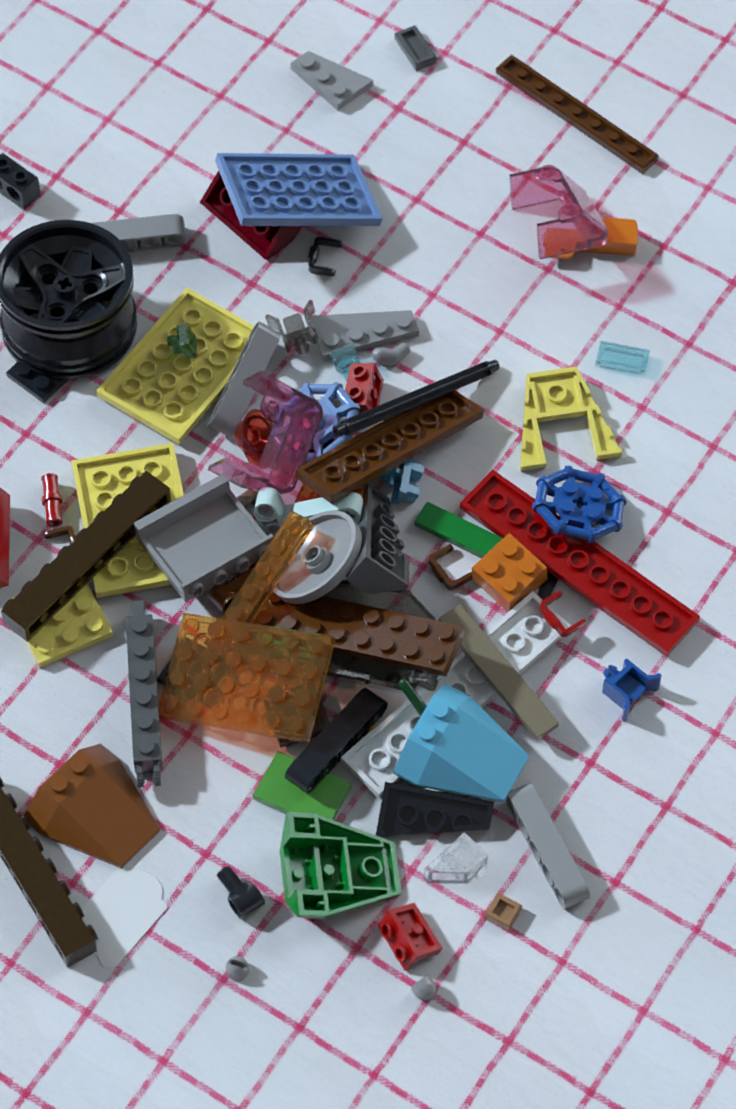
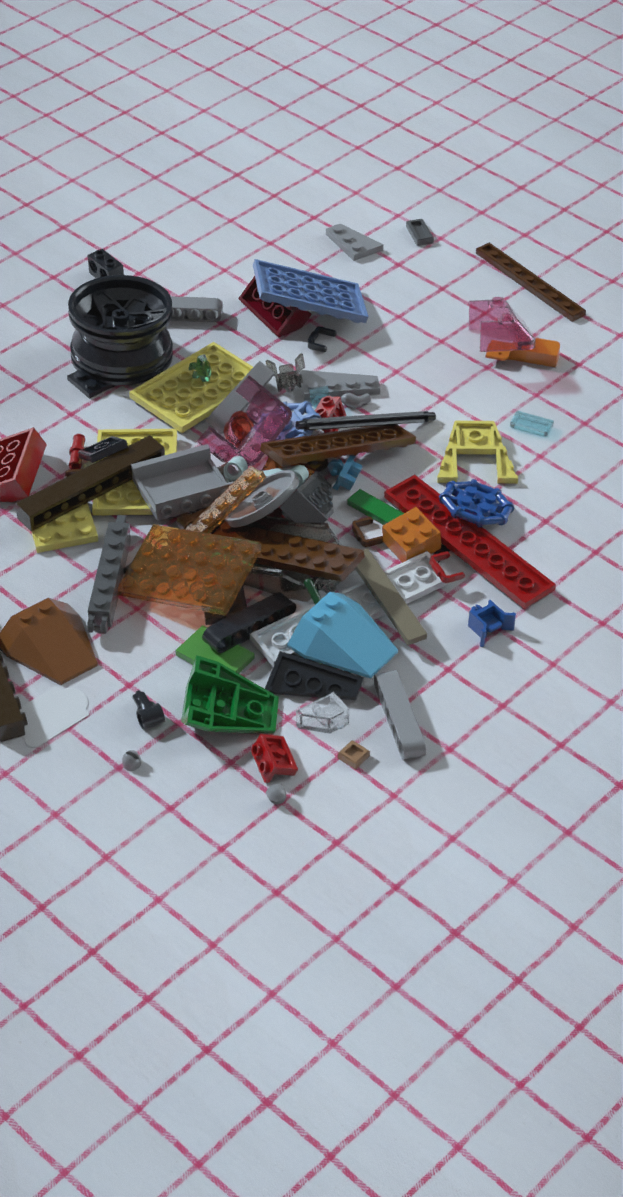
camera: 10 degrees right, 15 degrees down
(89, 500) = (102, 449): none -> black tile

